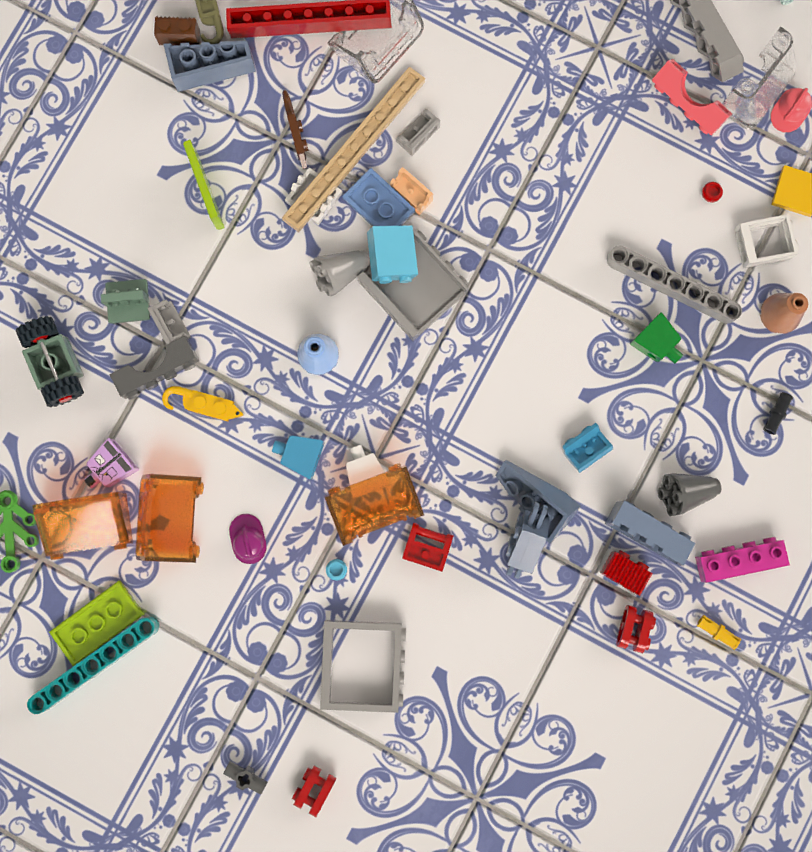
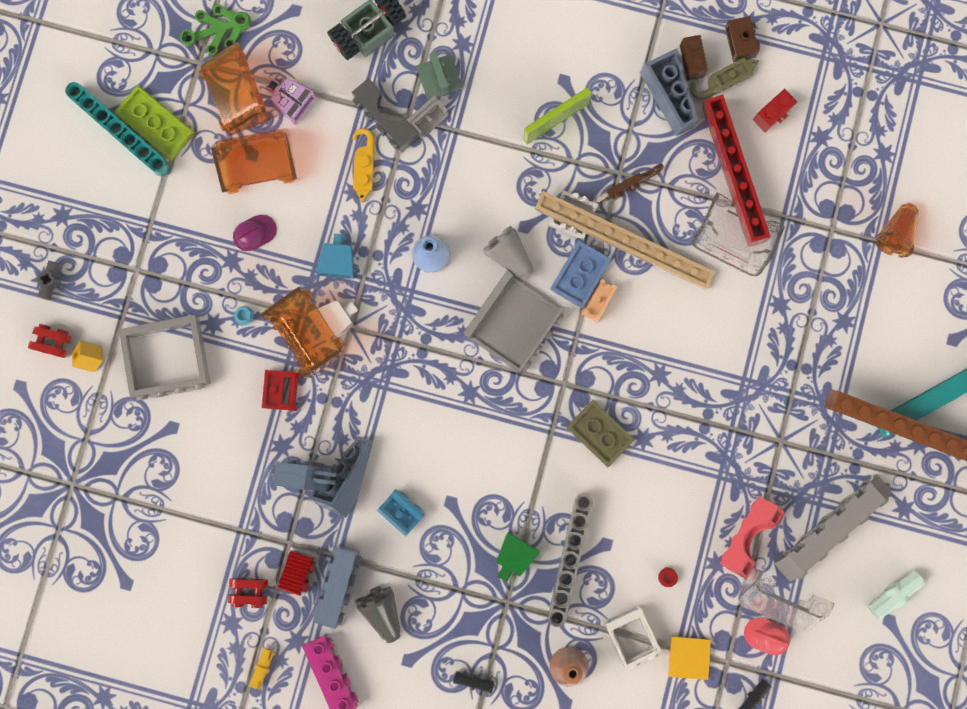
camera: 75 degrees right, 0 degrees up
(340, 752) = (87, 356): none -> yellow panel
(392, 253) = (534, 296): medium azure brick -> none
(418, 132) = (656, 294): light grey hinge -> none
(550, 223) = (600, 433): none -> olive plate

